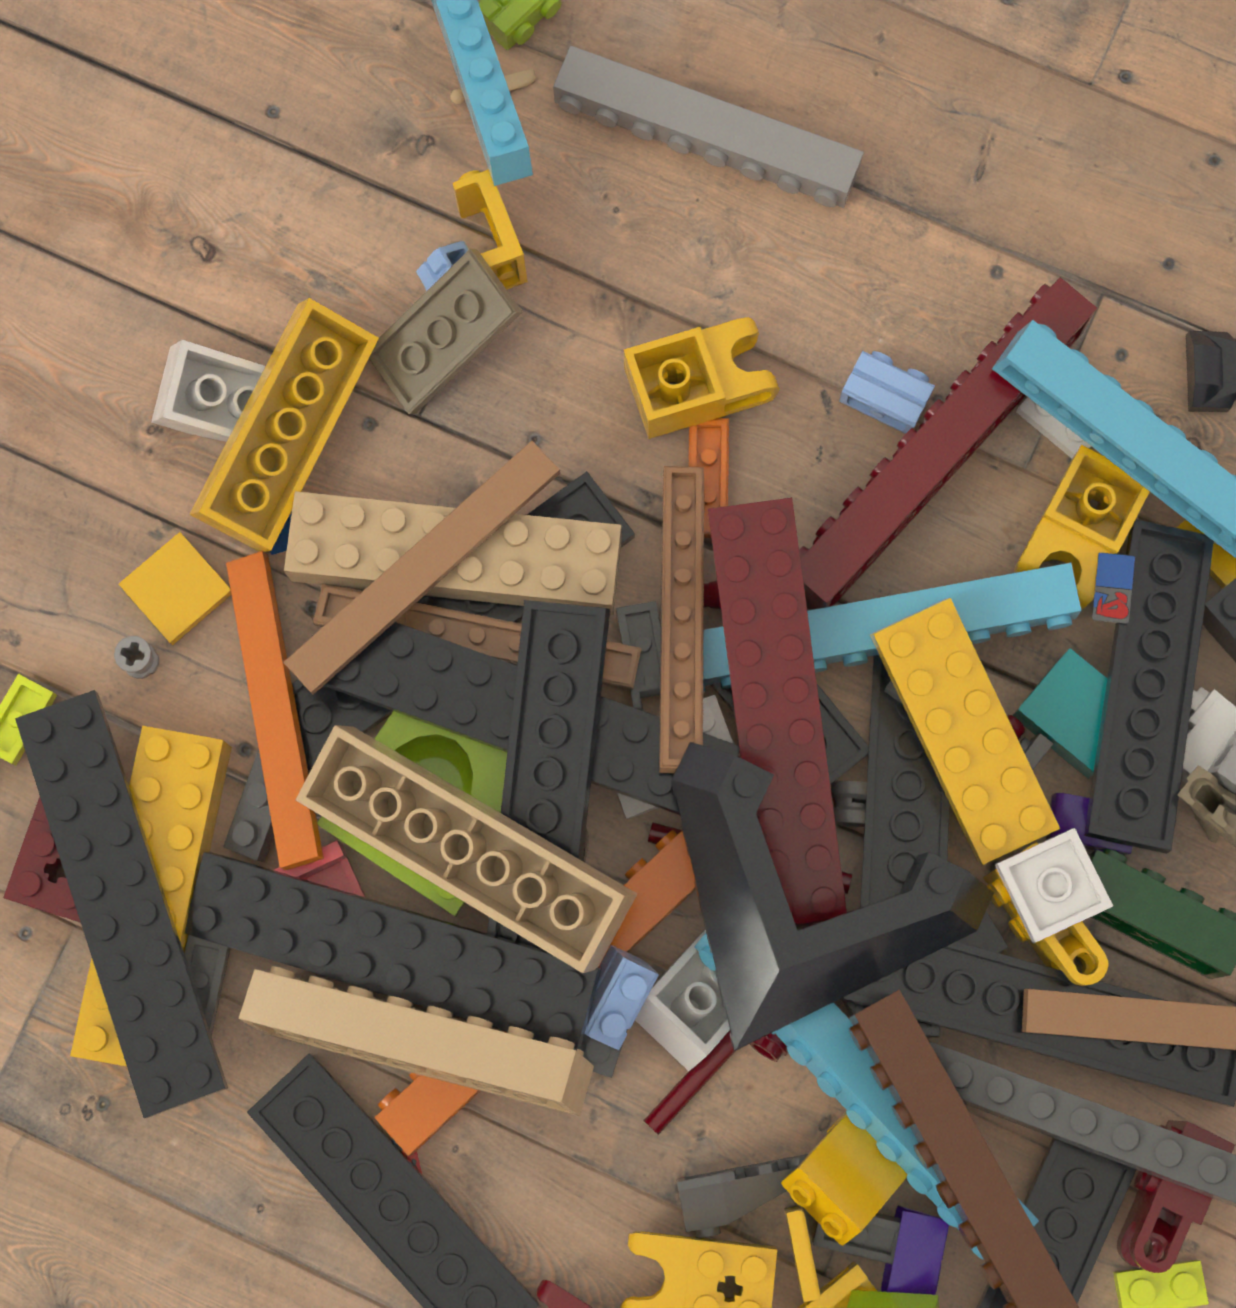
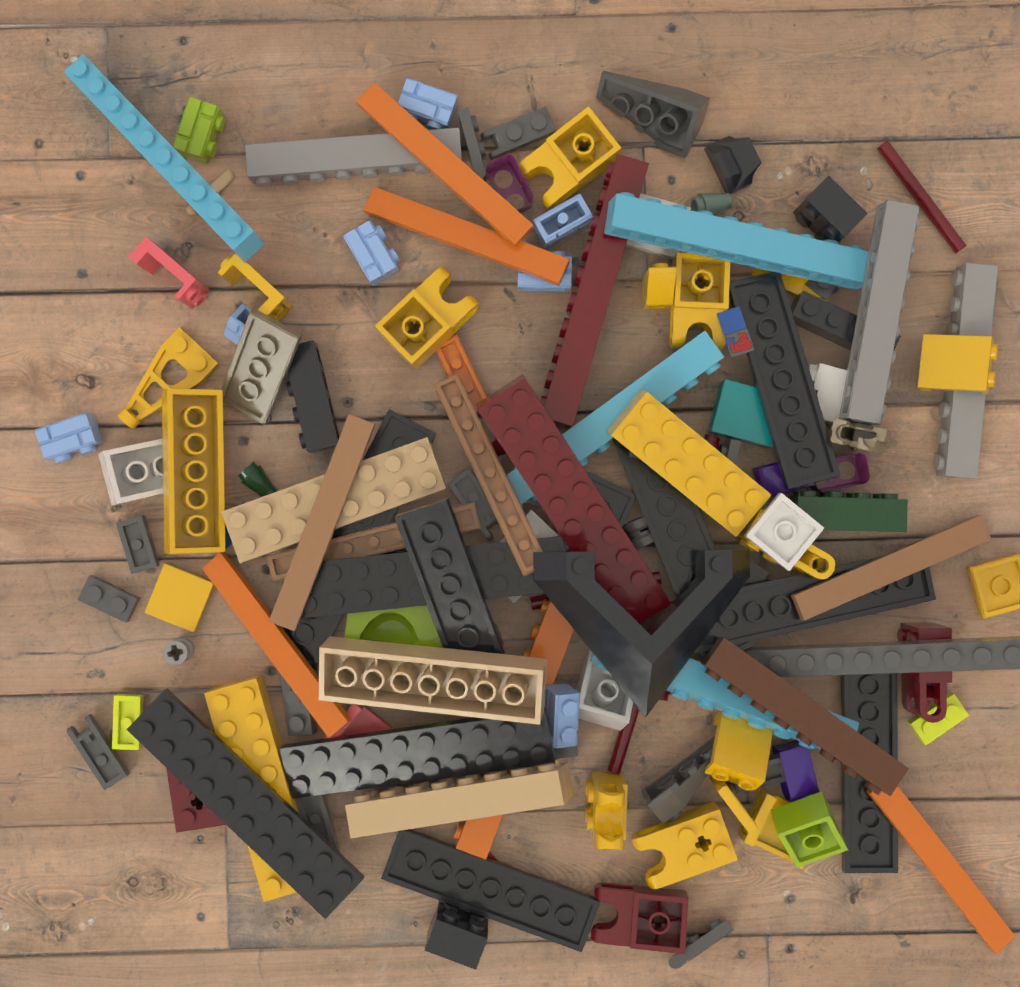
camera: 30 degrees left, 10 degrees up
(80, 544) = (108, 598): none -> dark grey plate
(144, 308) = (69, 437): none -> light blue brick
(158, 489) = (137, 544): none -> dark grey plate
(313, 1242) = (457, 935): none -> black brick
(355, 272) = (187, 353): none -> yellow plate
(360, 476) = (257, 480): none -> dark green cone
(376, 129) = (151, 256): none -> coral panel
(490, 408) = (312, 399): none -> black brick
(618, 1166) = (607, 809): none -> yellow brick
(667, 260) = (371, 253): none -> light blue brick
(806, 295) = (466, 236): none -> orange tile
(821, 190) = (444, 164): none -> orange tile
(835, 106) = (428, 104): none -> light blue brick
(871, 190) = (475, 149): none -> dark grey hinge
(907, 229) = (508, 163): none -> magenta piece
(943, 198) = (520, 132): none -> dark grey hinge
(943, 335) = (562, 221): none -> light blue brick
(986, 262) = (566, 163): none -> yellow brick
(1035, 481) = (658, 286): none -> yellow slope
(1149, 258) = (660, 110): none -> dark grey wedge
(1166, 407) = (711, 202): none -> sand green cone
(1209, 859) = (860, 477): none -> magenta piece

